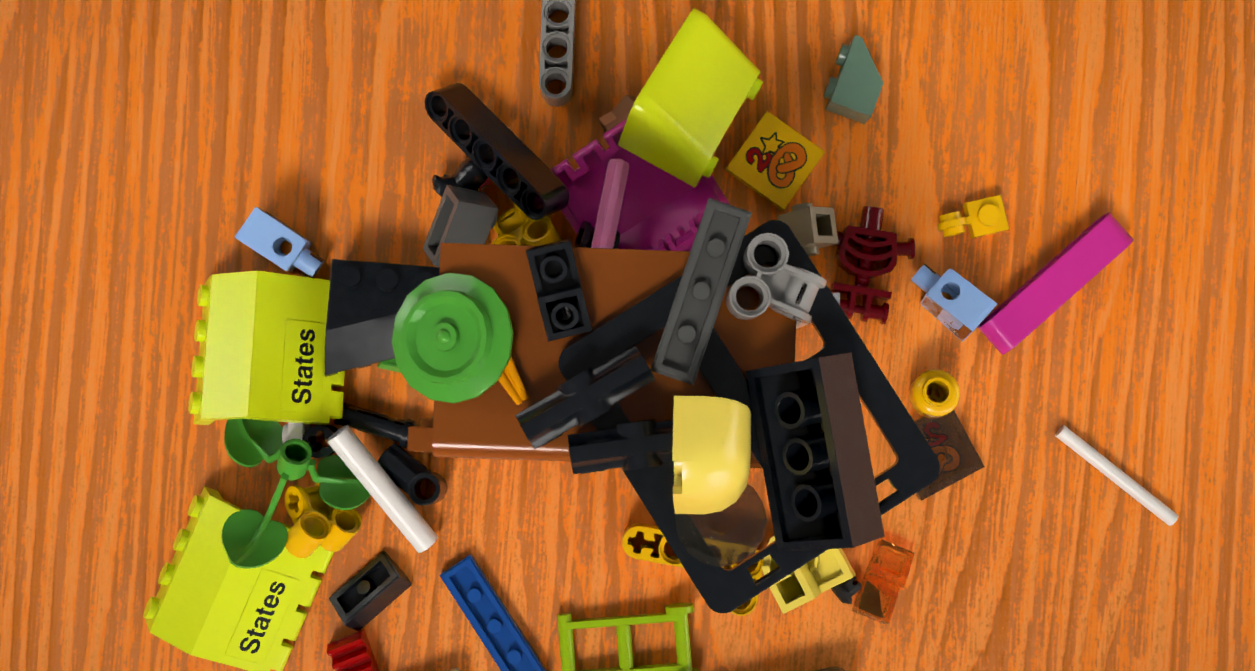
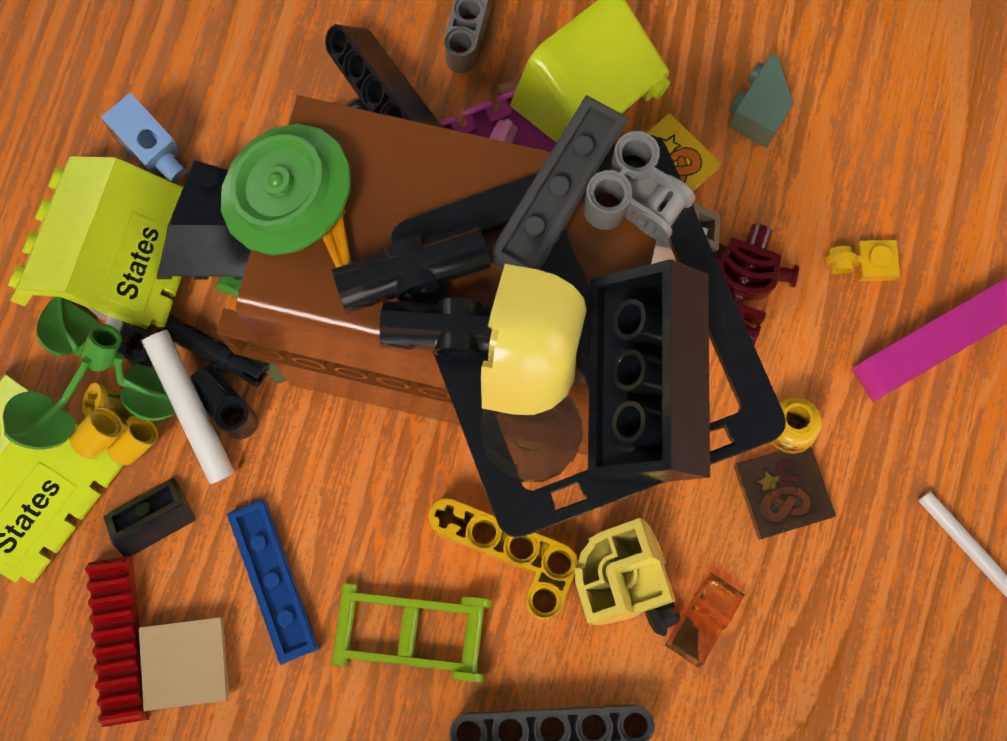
camera: 15 degrees right, 10 degrees down
(558, 290) = (408, 161): black slope -> none
(968, 303) = (831, 334): light blue torso -> none

